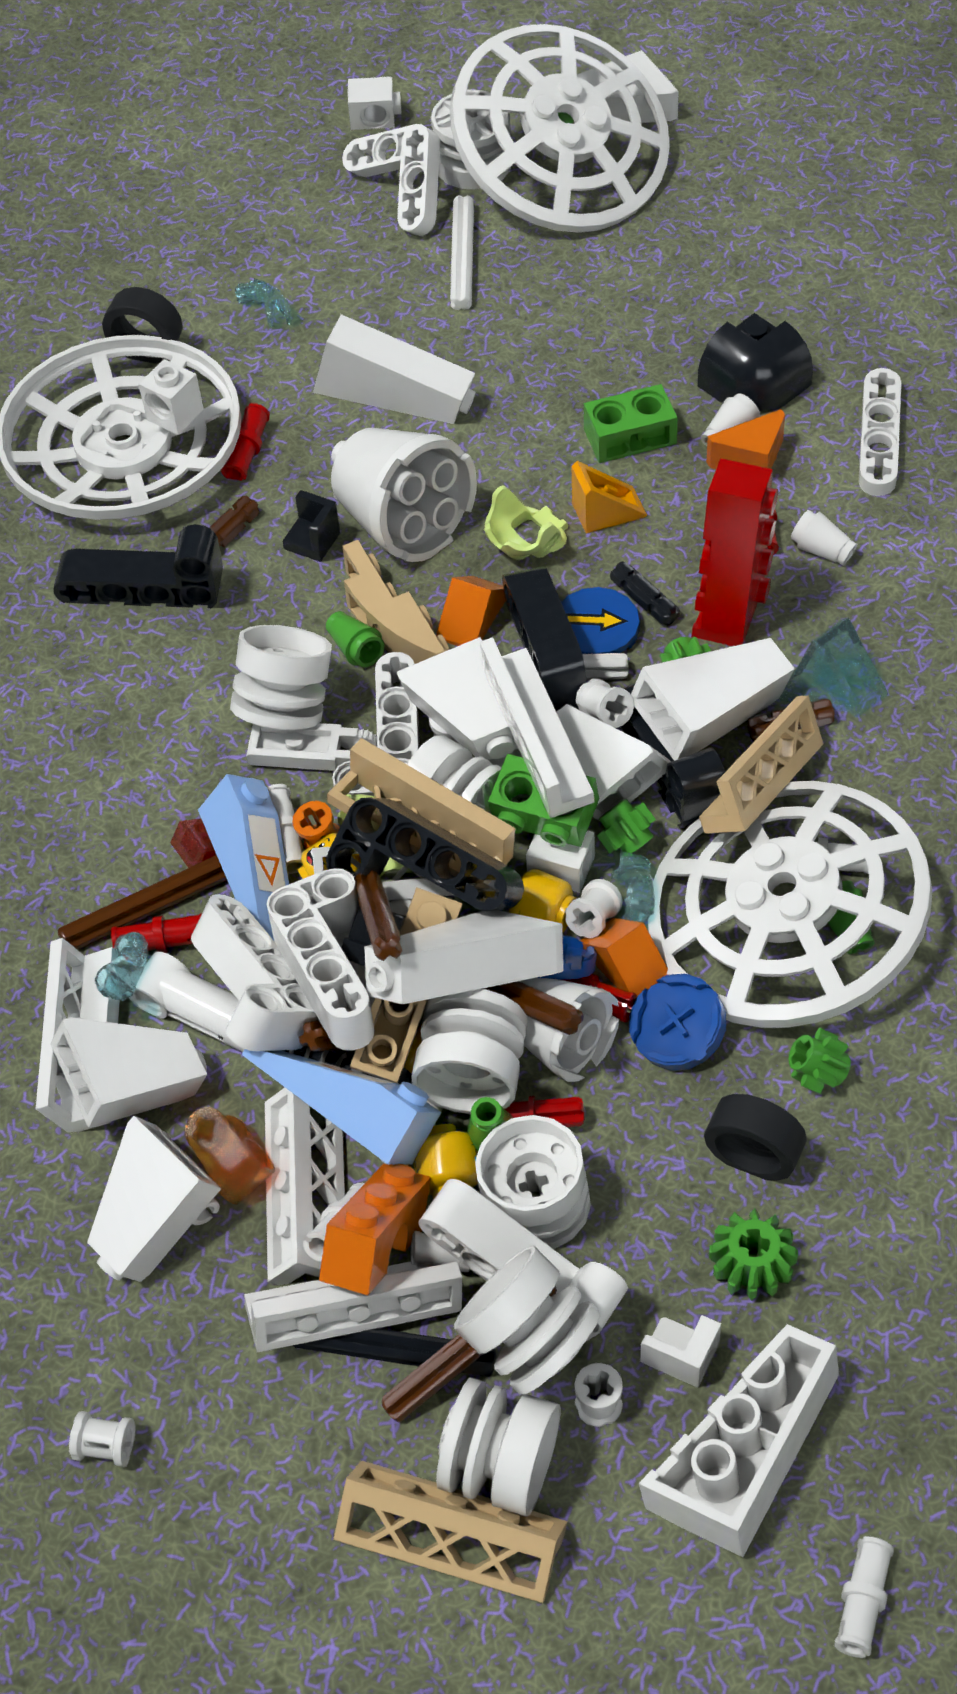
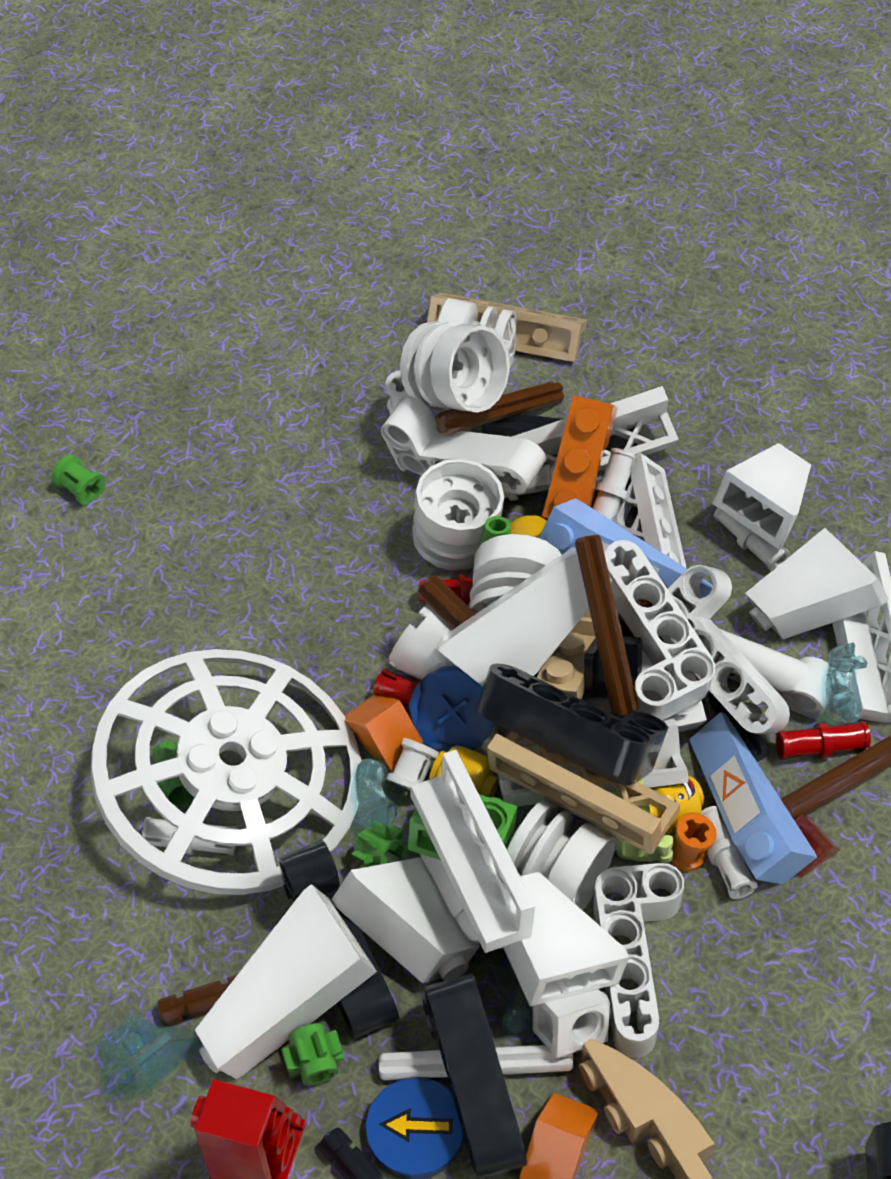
camera: 175 degrees right, 0 degrees up
(102, 1438) = (764, 361): white bush -> none
(228, 1153) = (712, 542): clear orange piece -> none
(280, 677) = (743, 1011): white wheel -> none
(304, 748) = (720, 950): white hinge -> none
(355, 639) = (695, 1090): bright green cone -> none
(605, 703) = (403, 970): white bush -> none
(677, 1022) = (336, 666): blue tile -> none
(682, 1350) = (342, 428): white panel -> none
(733, 1259) = (283, 490): bright green gear -> none
(740, 1453) = (296, 363): white wedge -> none
(755, 1136) = (276, 539): black tyre -> none
(764, 769) = (240, 885): tan fence -> none
(819, 1060) = (214, 630): bright green gear -> none
(864, 1597) = (224, 297): white pin -> none

